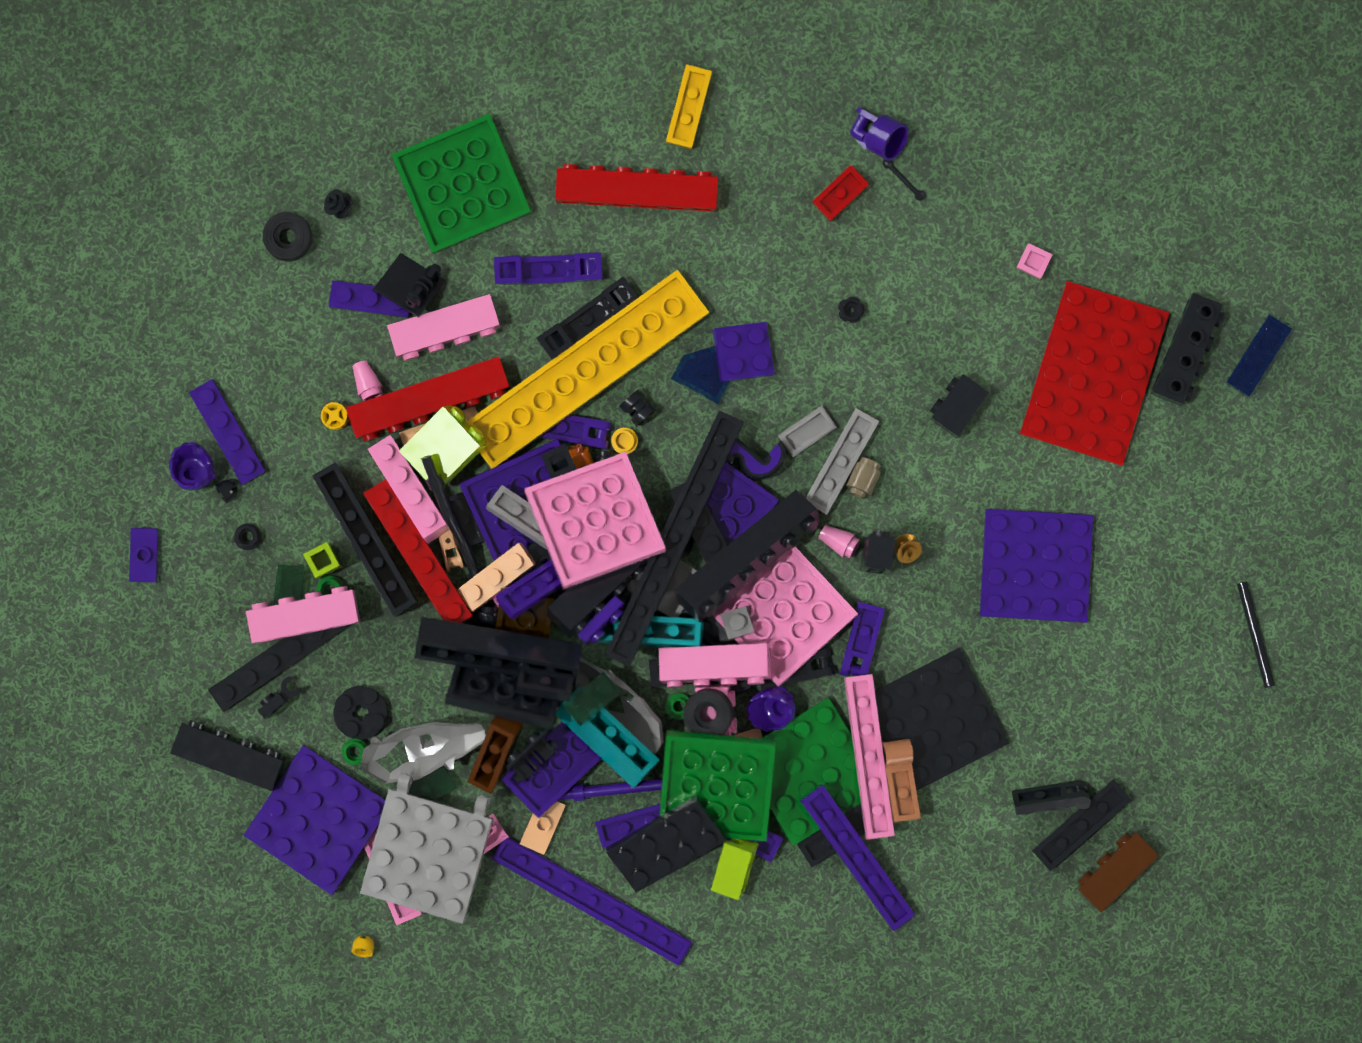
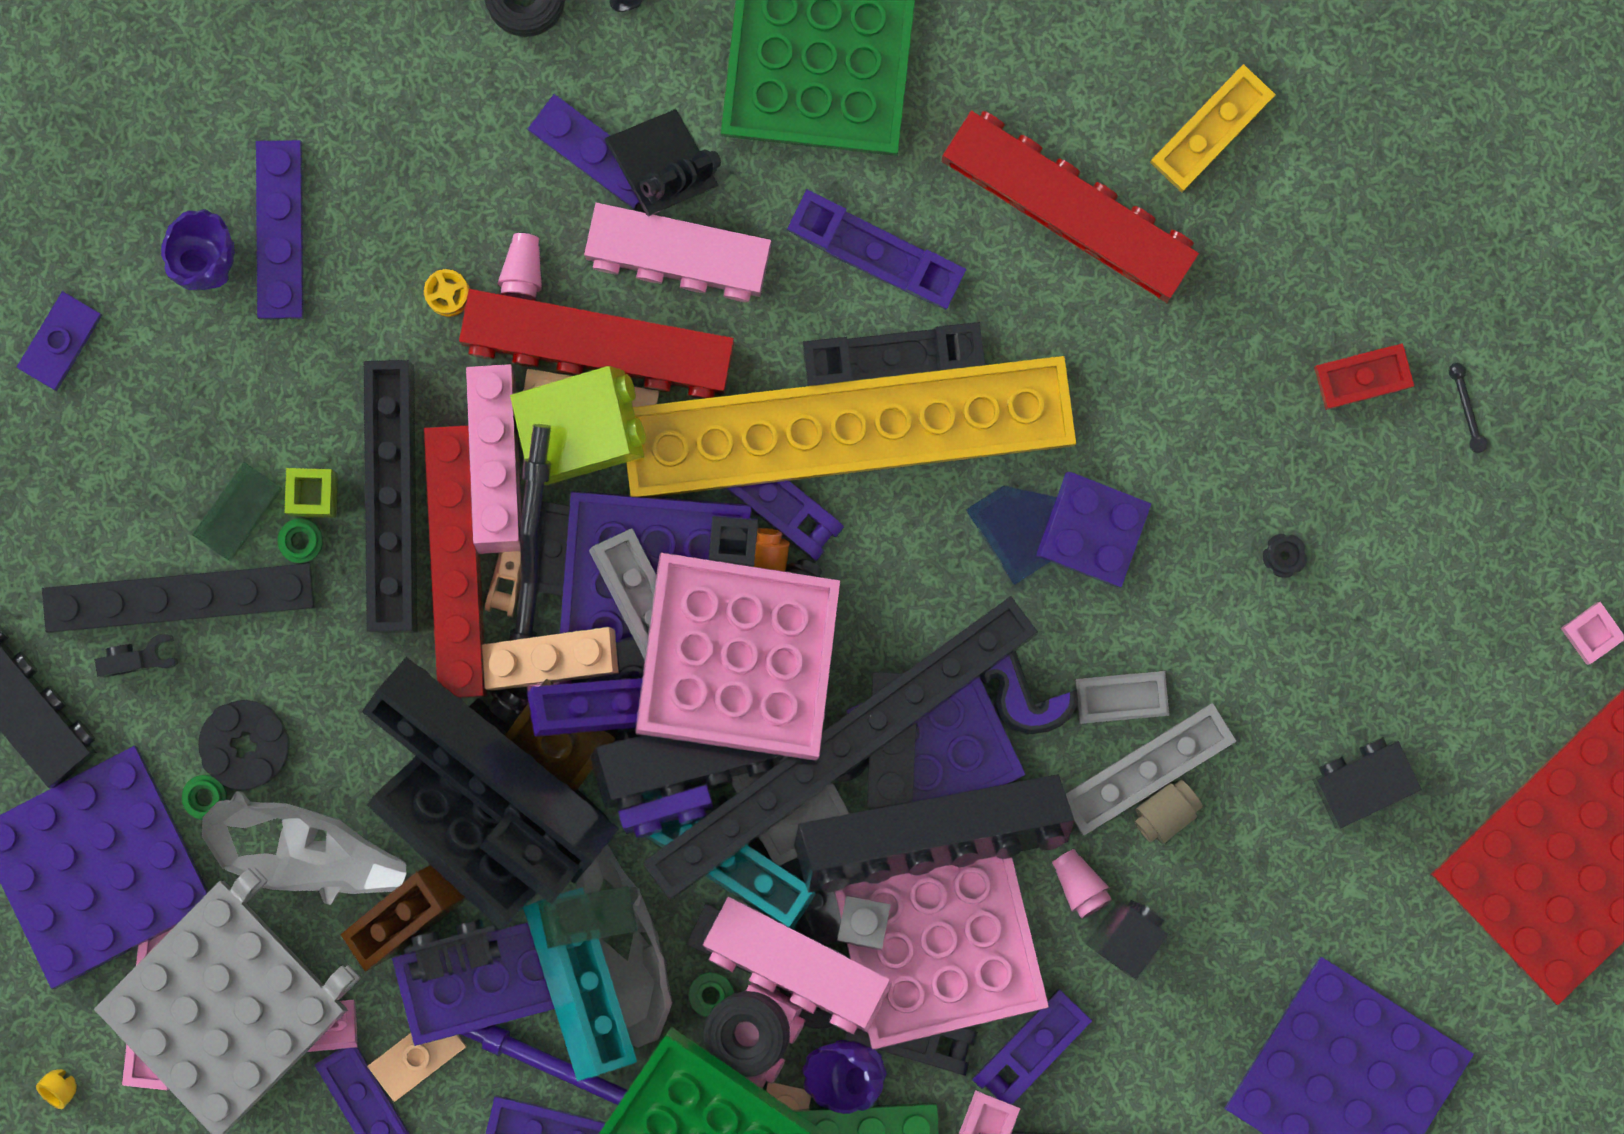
camera: 30 degrees right, 0 degrees up
(227, 489) = (232, 313): black hinge -> none
(238, 536) = (210, 393): black plate -> none
(302, 616) = (235, 558): bright pink brick -> none
(433, 785) = (289, 910): clear green plate -> none
(624, 440) = (848, 563): yellow plate -> none
(637, 407) = (893, 525): black wheel -> none
(886, 136) = (1475, 331): dark purple piece -> none
(907, 548) = (1176, 952): pearl gold wheel -> none

